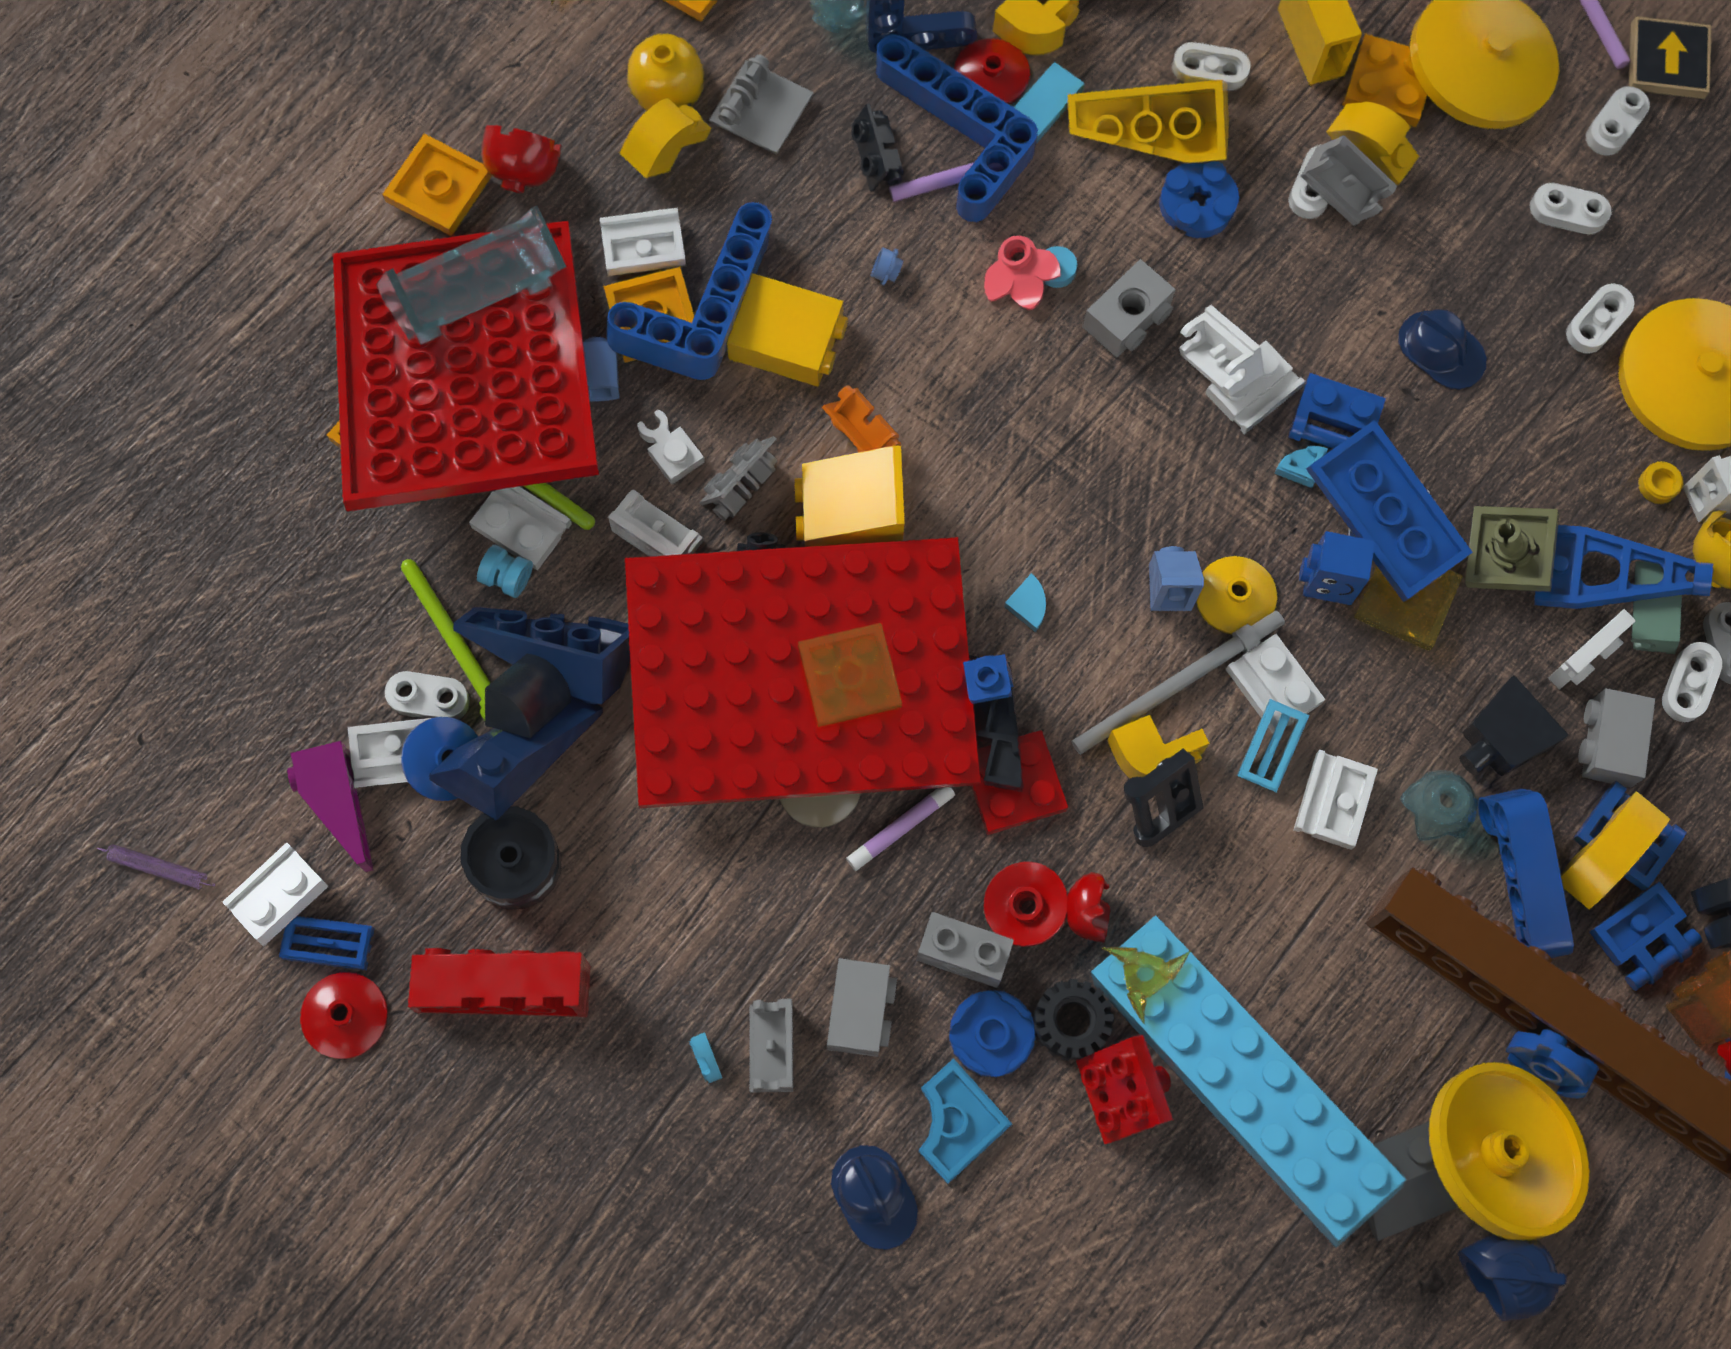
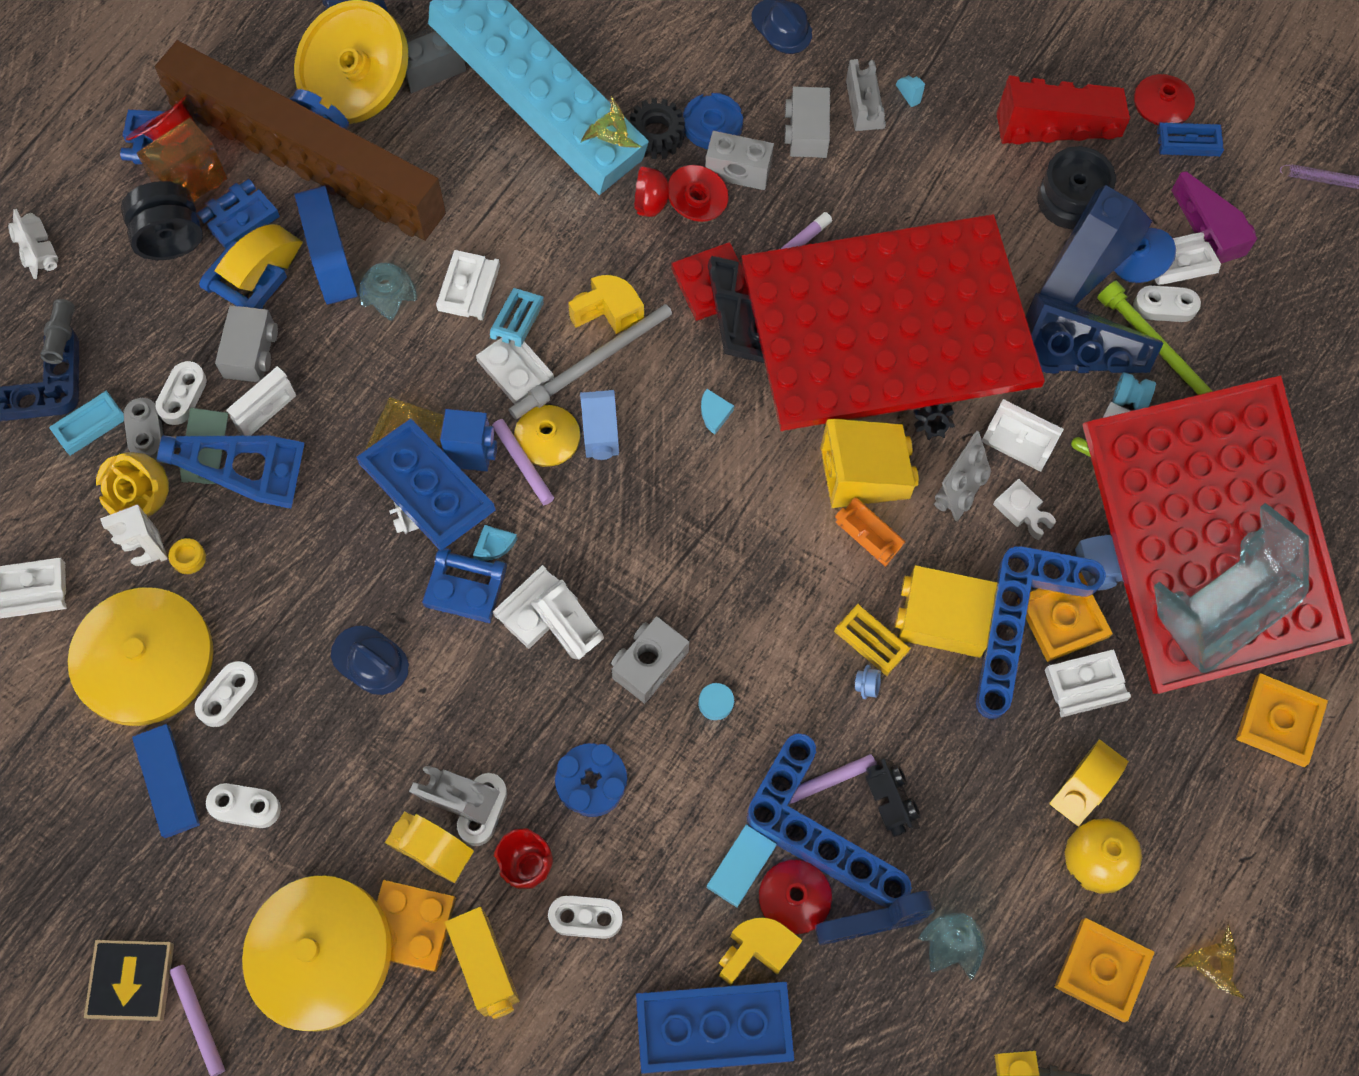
camera: 175 degrees right, 5 degrees down
(275, 894) = (1236, 161): white plate -> none
(519, 158) = (1218, 747): red cylinder -> none
(526, 697) = (1094, 279): black brick -> none
(761, 105) = (1007, 832): light grey hinge -> none
(849, 674) = (853, 302): clear yellow plate -> none
(895, 339) = (866, 651): none -> yellow tile
(961, 1121) = (728, 68): dark azure tile -> none
(988, 678) = (746, 317): blue bracket -> none
(1021, 278) = (746, 685): coral plate -> none
(1125, 1089) = (617, 76): red plate -> none
(1165, 120) = (623, 852): yellow wedge -> none
(1176, 793) = (598, 266): black plate -> none
(1267, 561) = (523, 462): none -> lavender bar
(1273, 119) = (523, 858): none -> red hair
(1509, 731) = (331, 341): black torso -> none
(1512, 534) = (320, 468): olive plate -> none
(1619, 118) = (189, 904): white plate -> none
(1656, 240) = (165, 781): none -> blue tile

